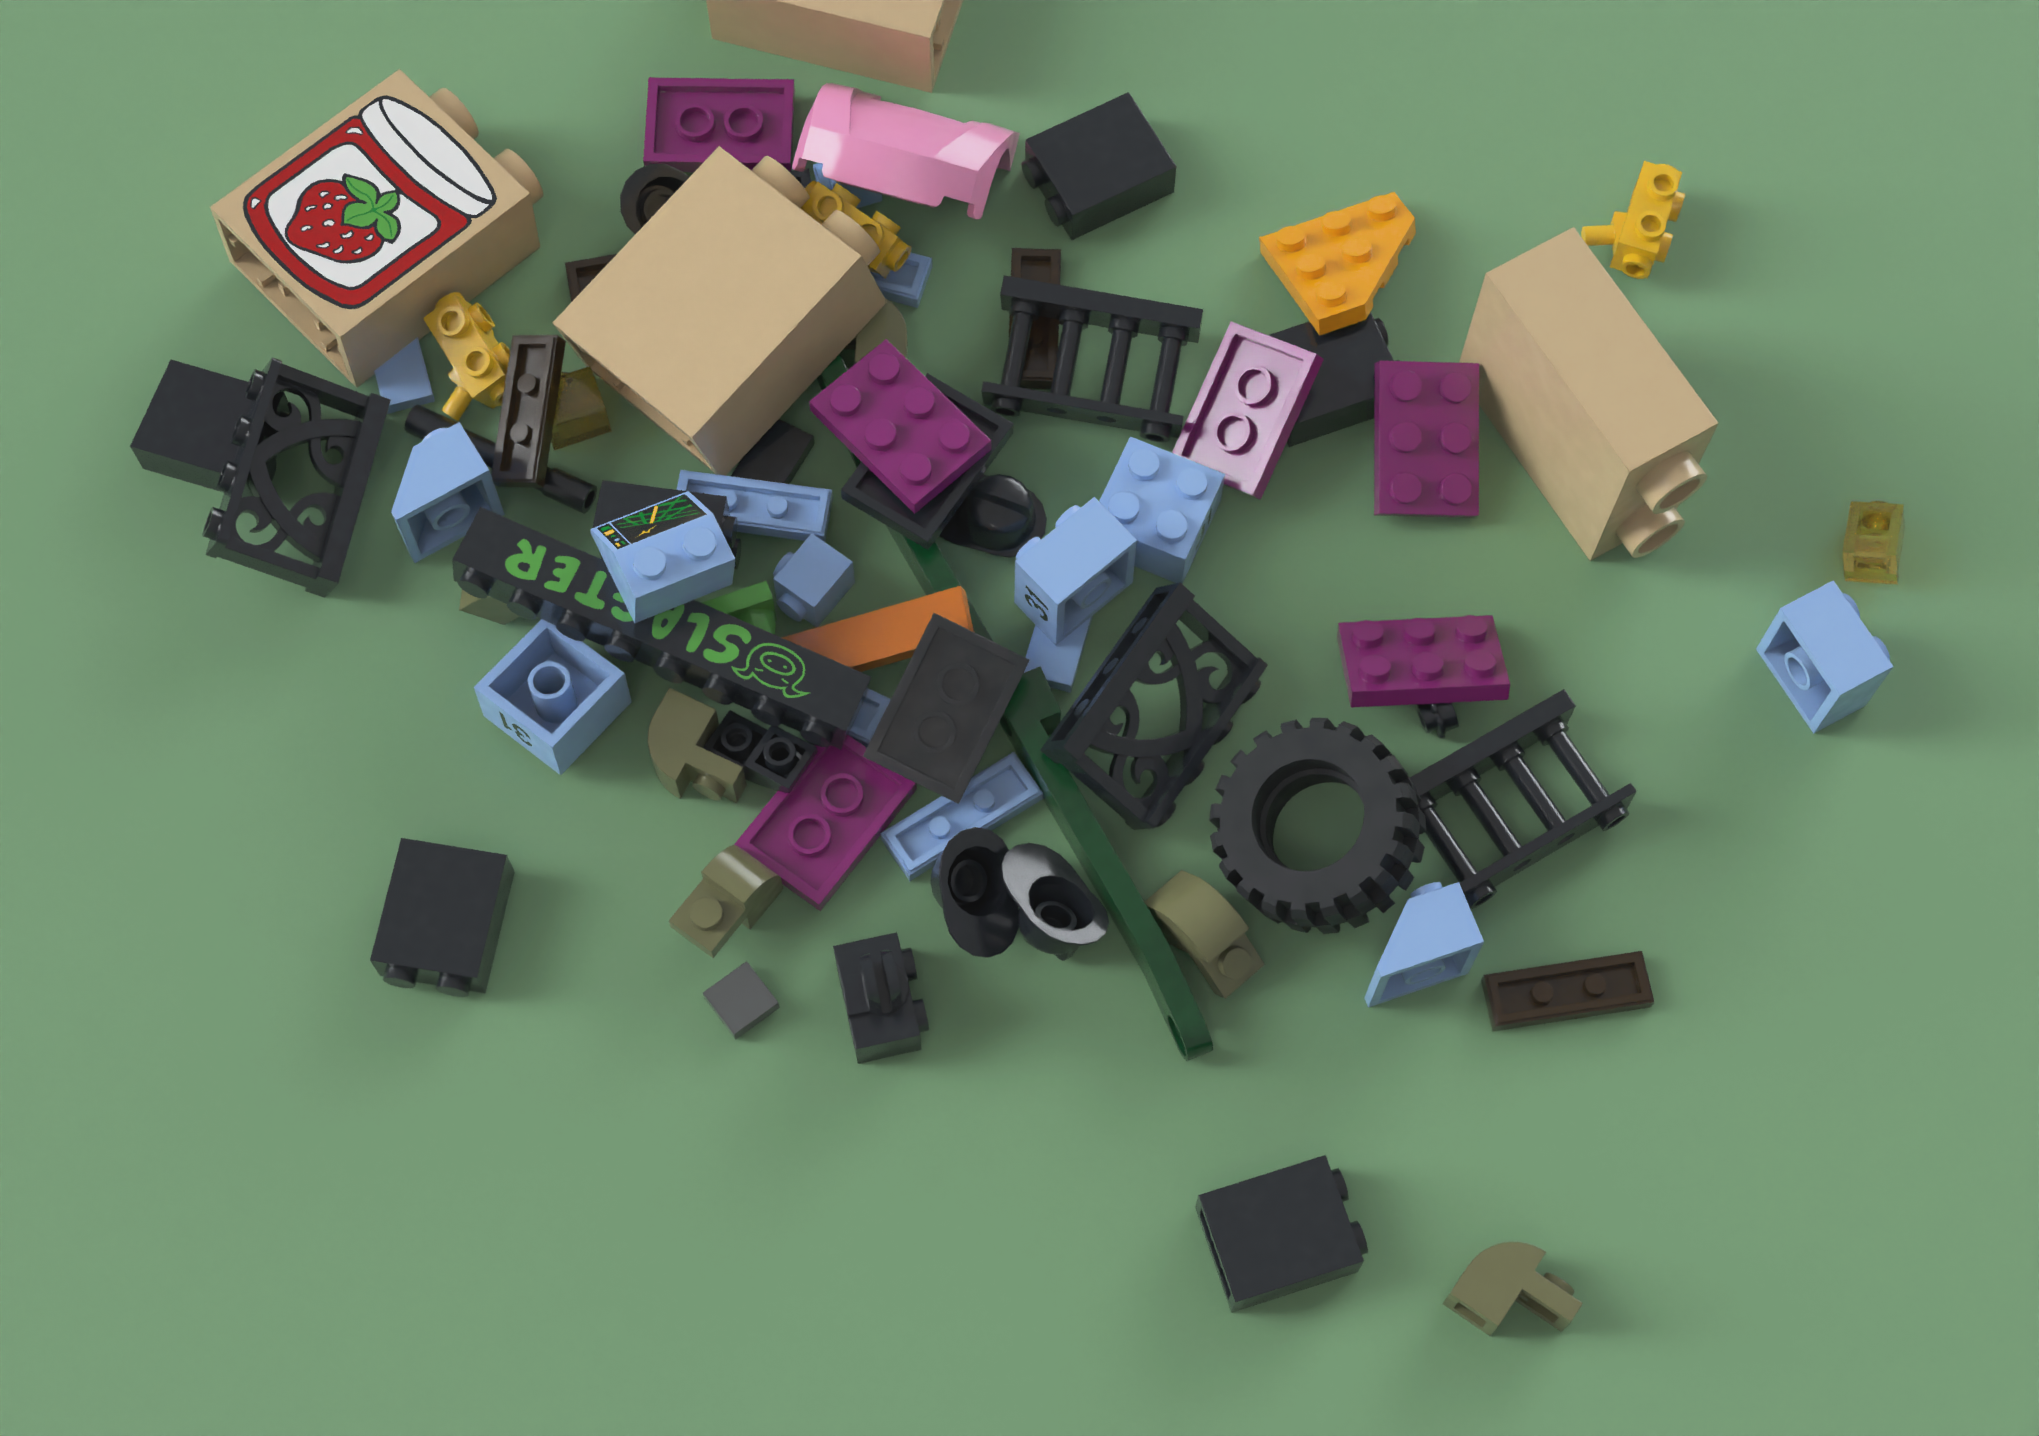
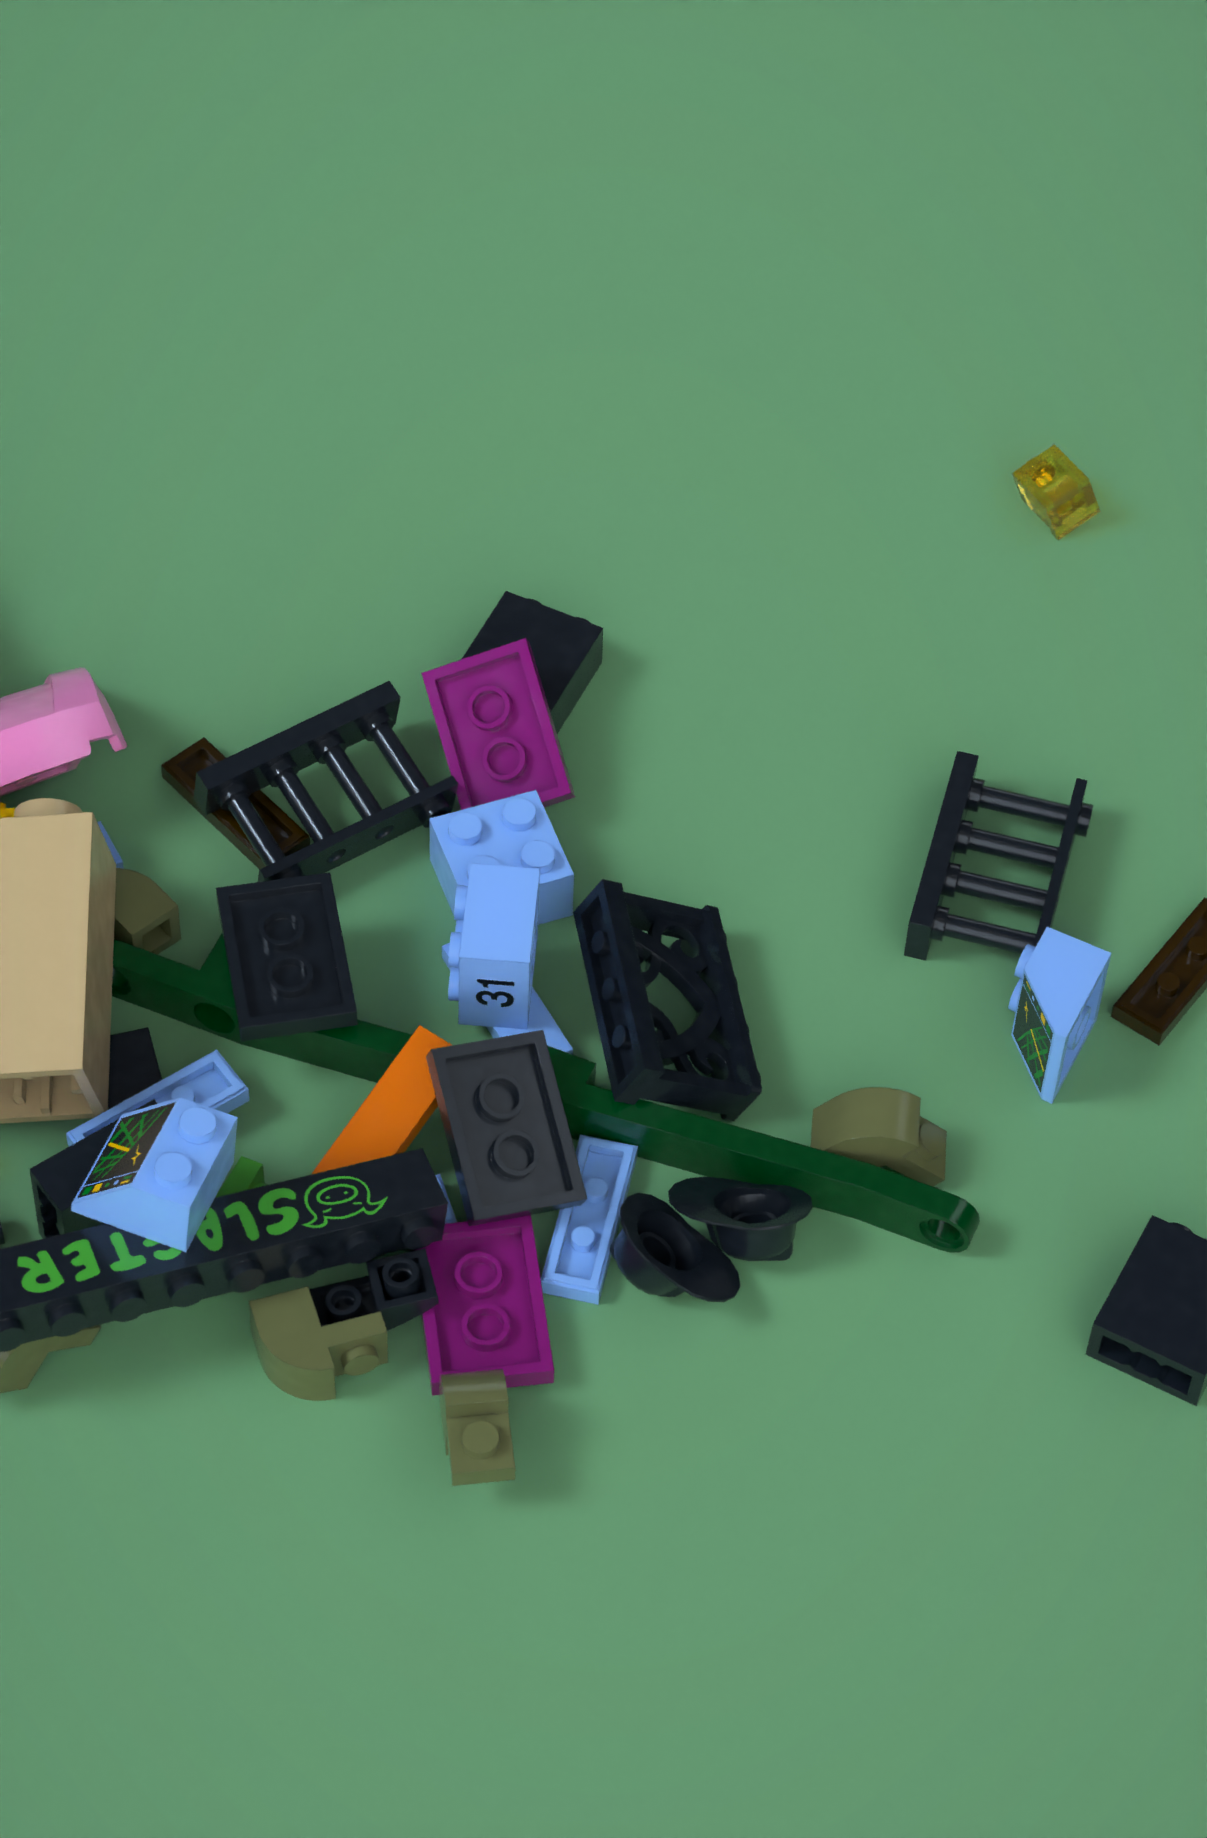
camera: 45 degrees left, 15 degrees down
(442, 917) = (238, 1649): black brick -> none
(553, 695) = (148, 1391): light blue brick -> none
(741, 1000) = (563, 1504): dark grey tile -> none
(812, 581) = (273, 1132): light blue brick -> none
(878, 997) = (678, 1398): black brick -> none
(900, 426) = (240, 940): magenta plate -> none
(997, 517) = (381, 969): black piece -> none
(1098, 166) = (170, 651): black brick -> none
(1278, 772) = (879, 912): black tyre -> none
(1340, 259) = (445, 581): light orange plate -> none
(1422, 661) = (826, 817): magenta plate -> none
(1426, 439) = (657, 657): magenta plate -> none
(1437, 717) = (875, 848): black plate -> none
(1587, 398) = (765, 524): tan brick -> none
(1639, 233) = (649, 390): yellow brick -> none
(1824, 656) = (1113, 588): light blue brick -> none

